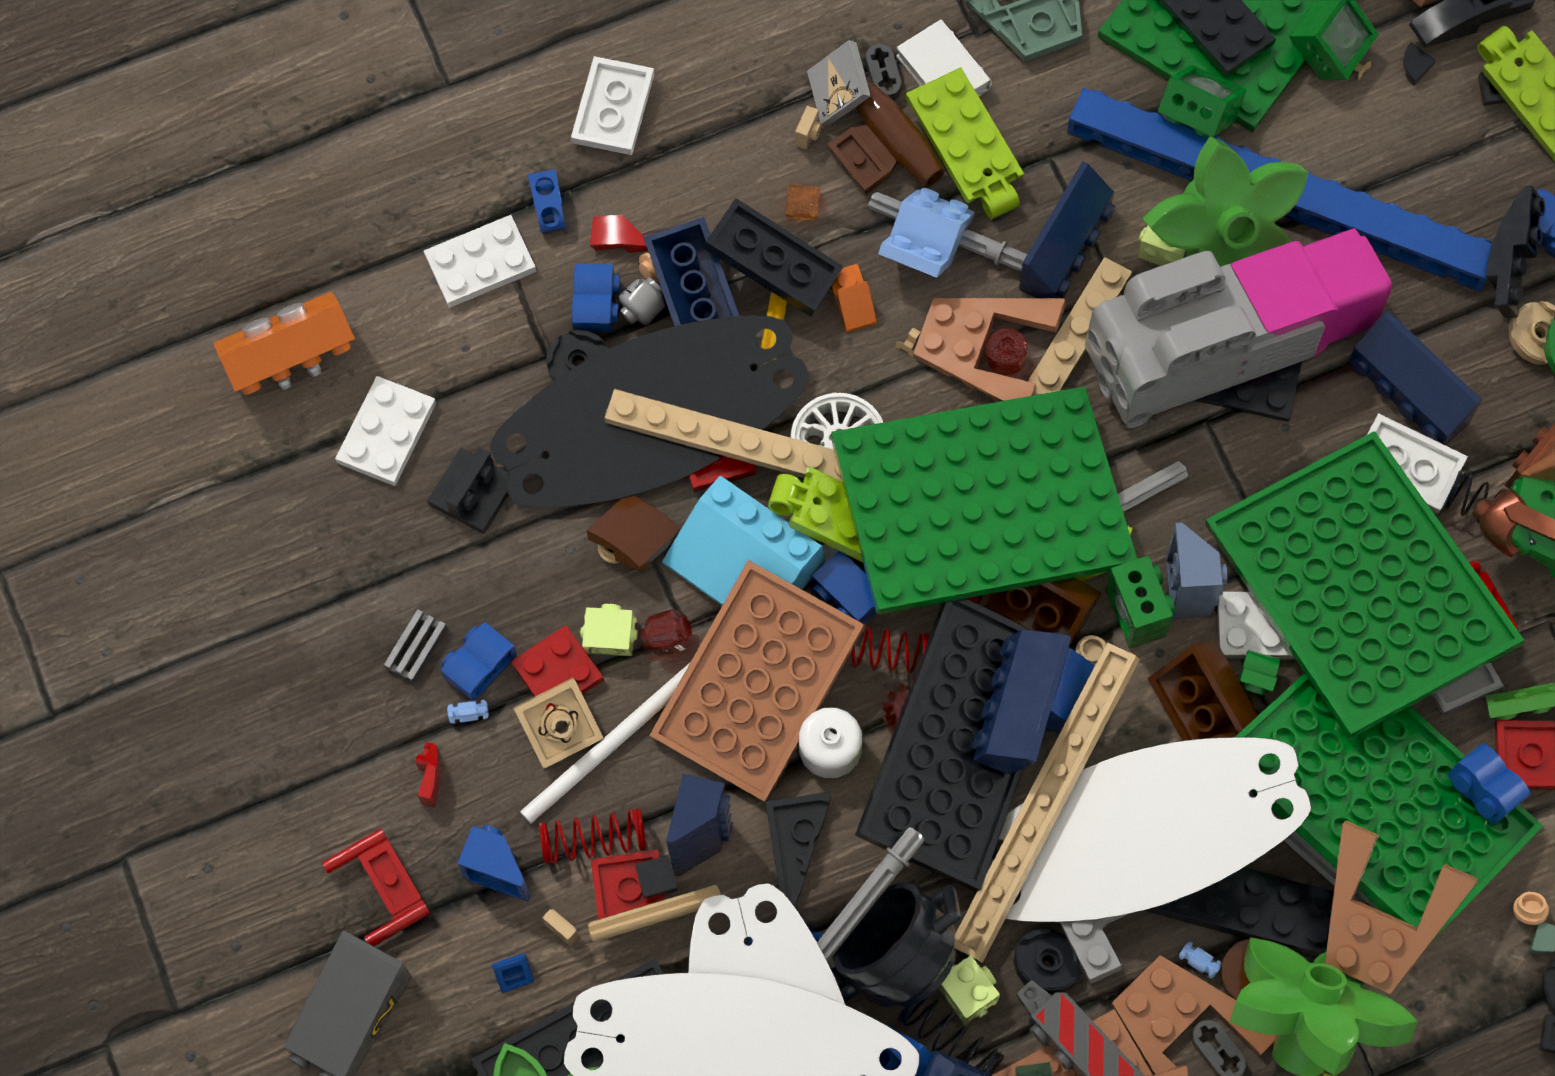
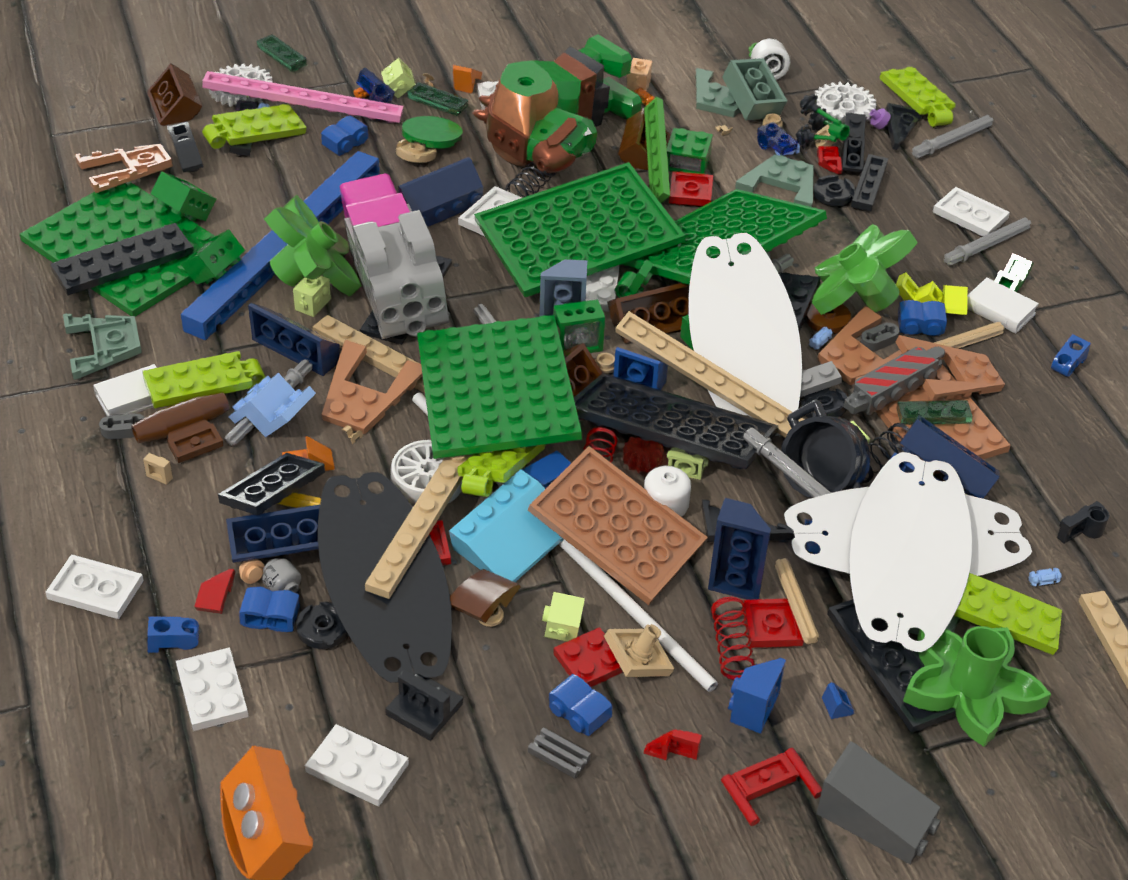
camera: 90 degrees left, 25 degrees down
(468, 711) = (620, 718): light blue piece -> none
(560, 927) = (804, 664): tan tile -> none
(656, 877) = (768, 598): black tile -> none
(666, 632) = (569, 580): clear red head -> none
(802, 202) = (218, 480): clear orange tile -> none
(838, 83) = (127, 441): light grey tile -> none
(1006, 351) = (376, 375): clear red head -> none
(1021, 700) = (650, 375): dark blue slope -> none
(1371, 942) = (824, 234): nougat wing -> none
(1416, 63) = (210, 176): black tile -> none
(1488, 783) = (714, 196): blue brick -> none
(1514, 241) = (358, 139): black slope -> none
(1531, 908) = (788, 196): light nougat plate -> none

